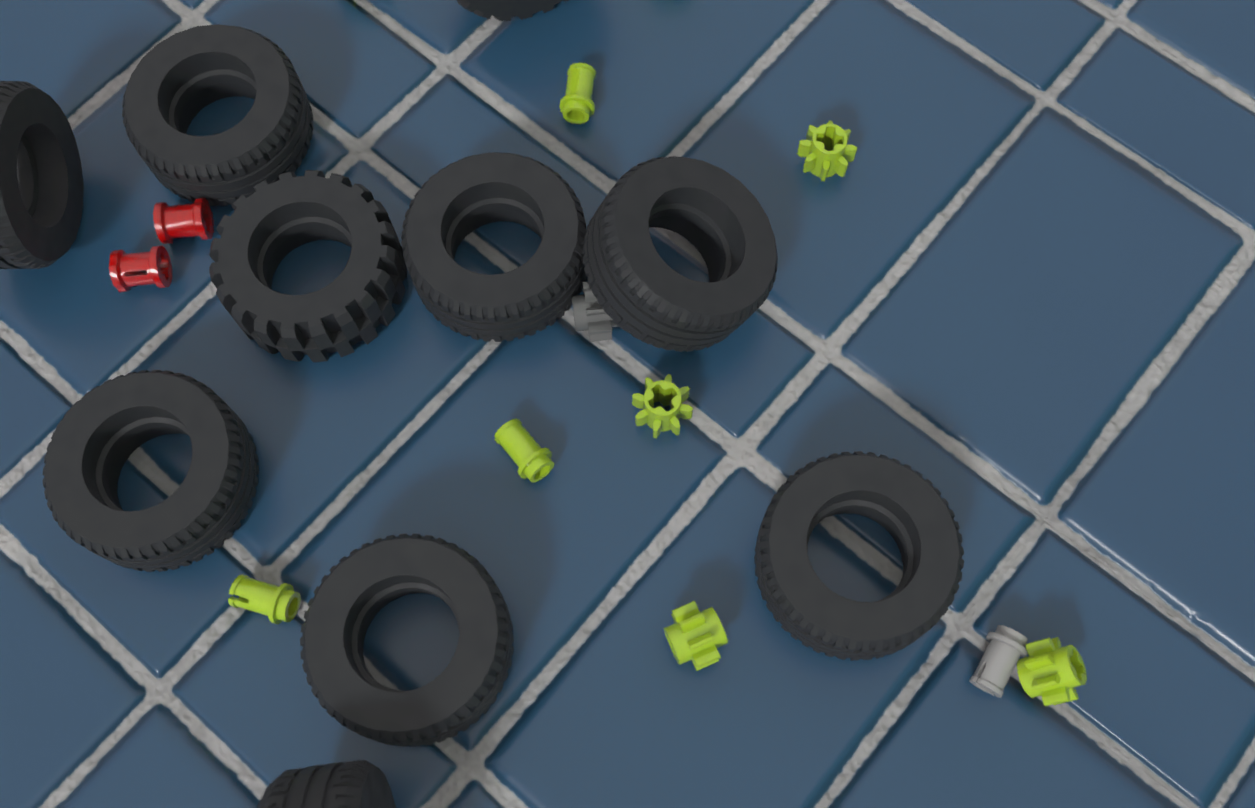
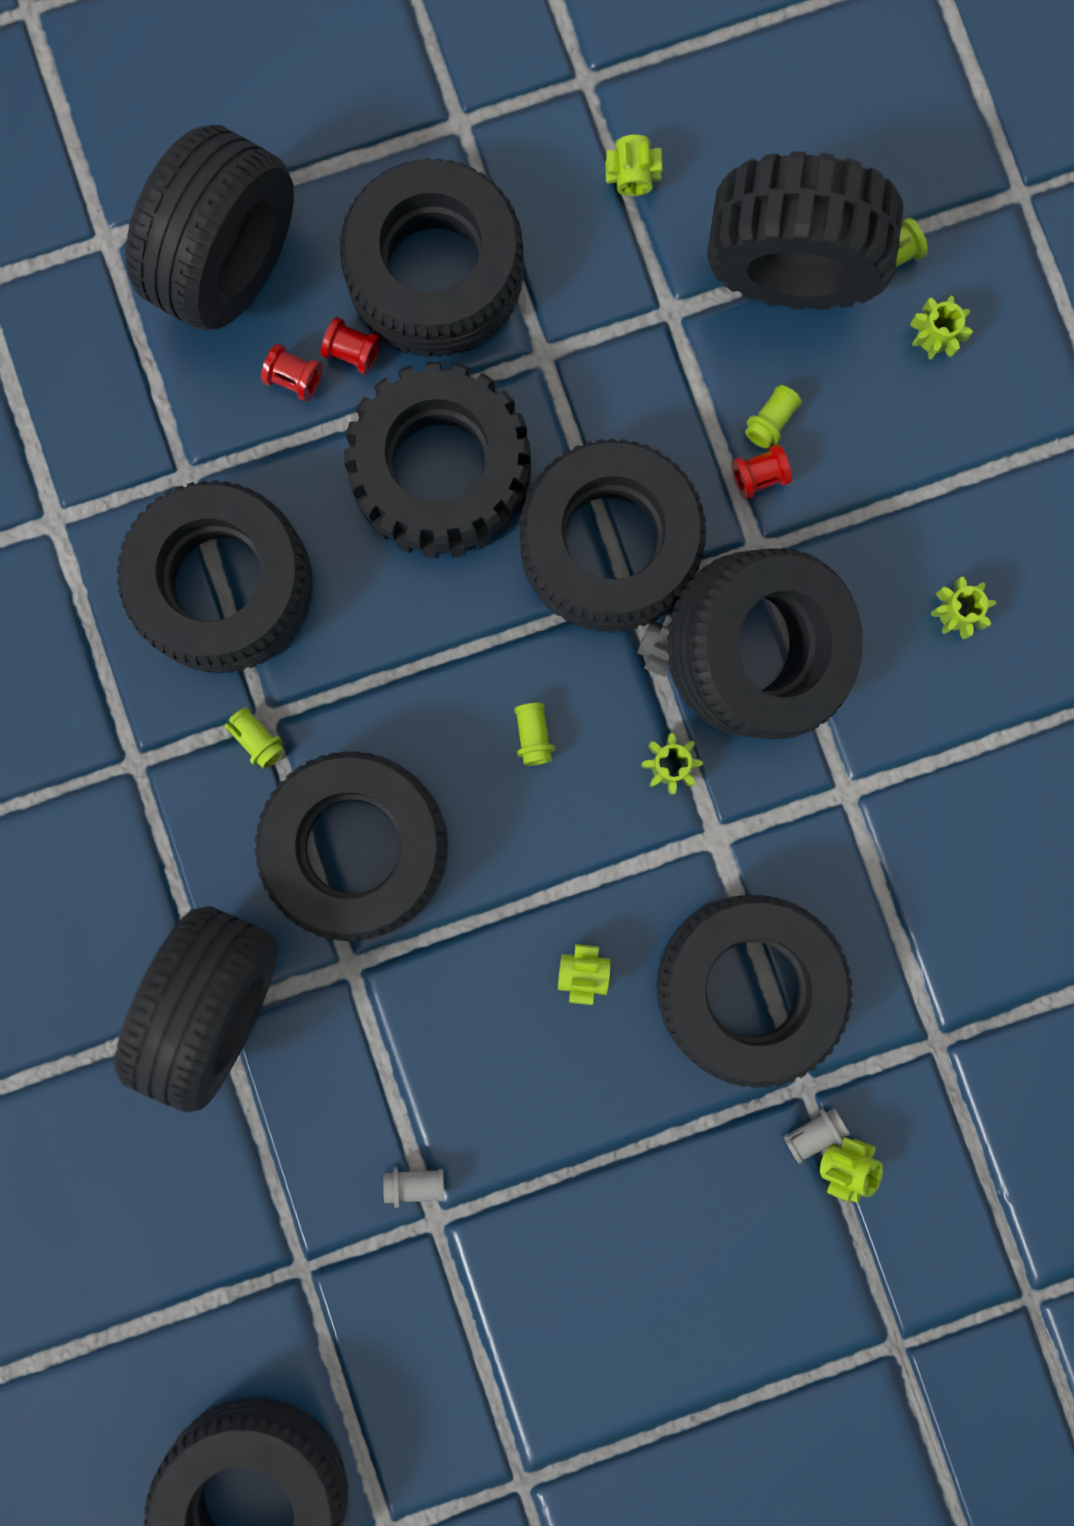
camera: 25 degrees right, 15 degrees up
(594, 137) = (761, 471): none -> red bush

